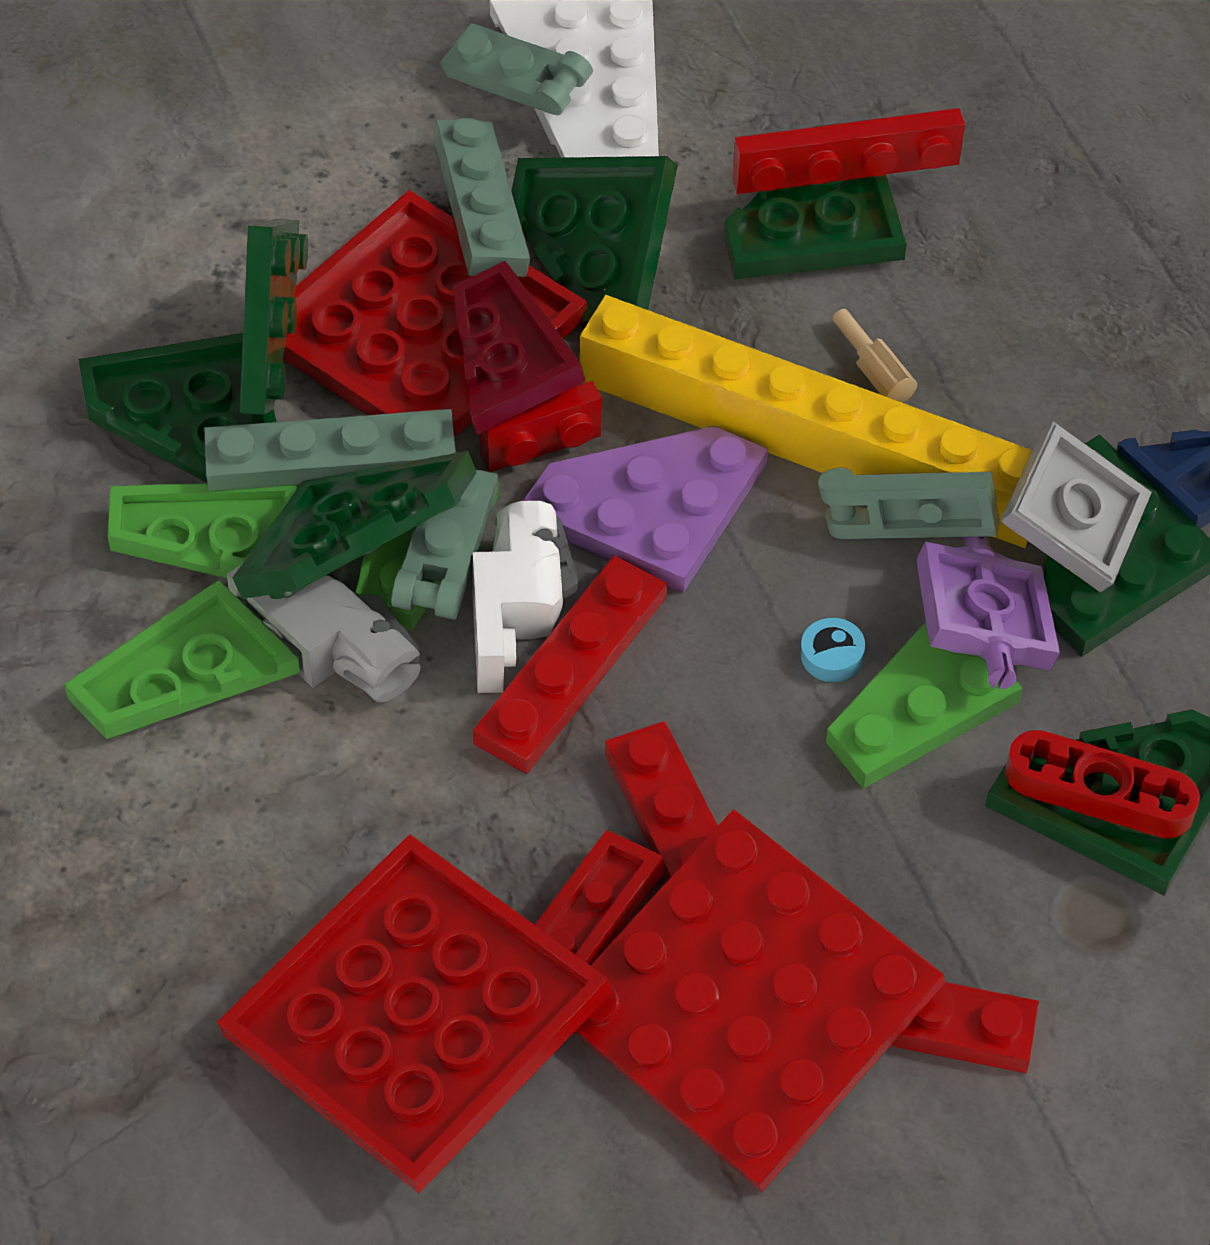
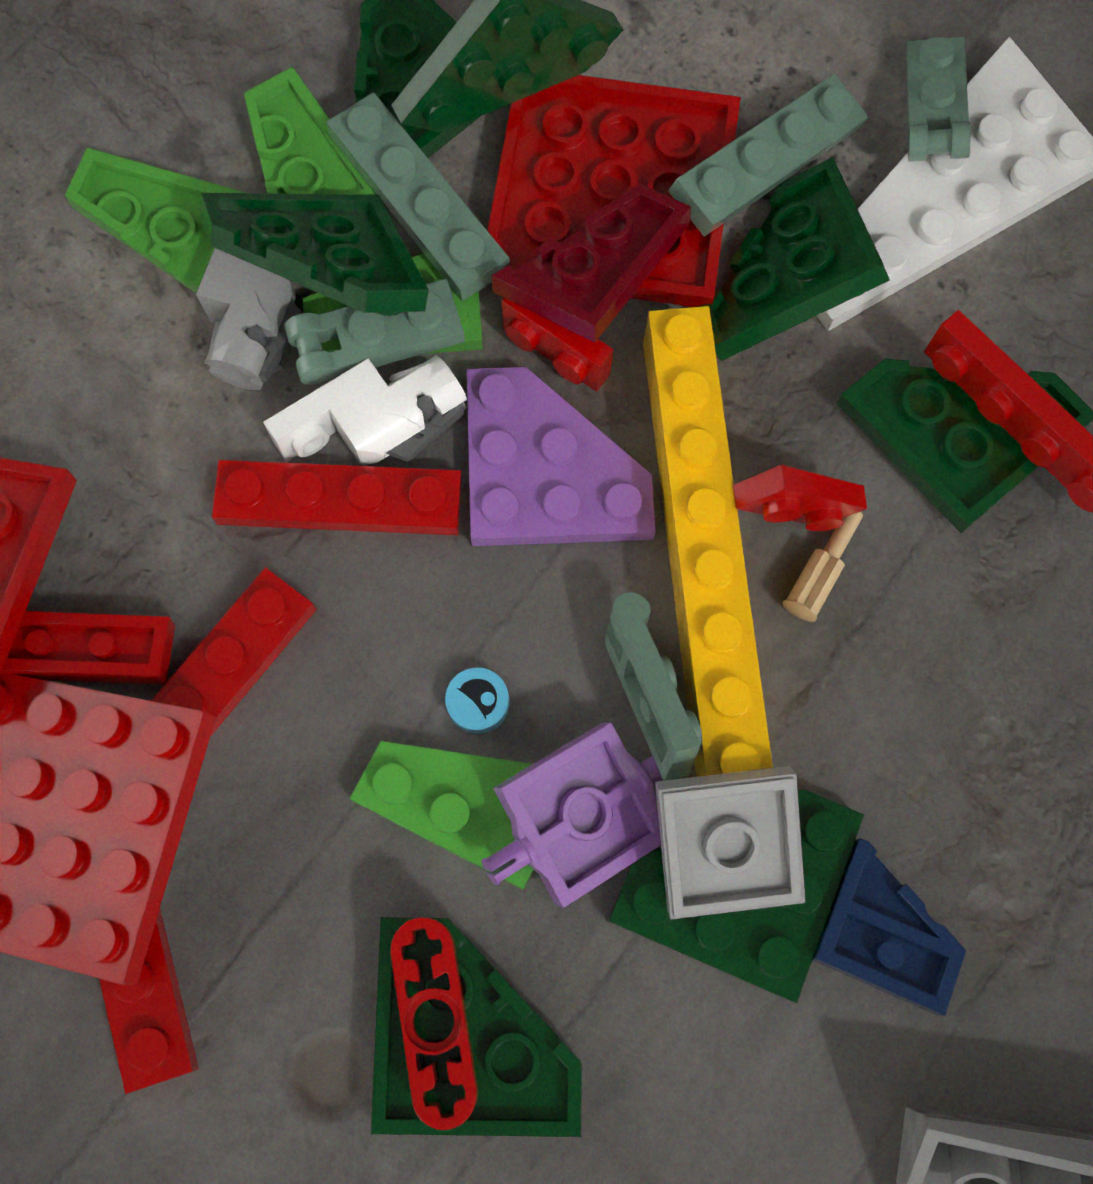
camera: 60 degrees right, 20 degrees up
(816, 325) = (800, 497): none -> red plate

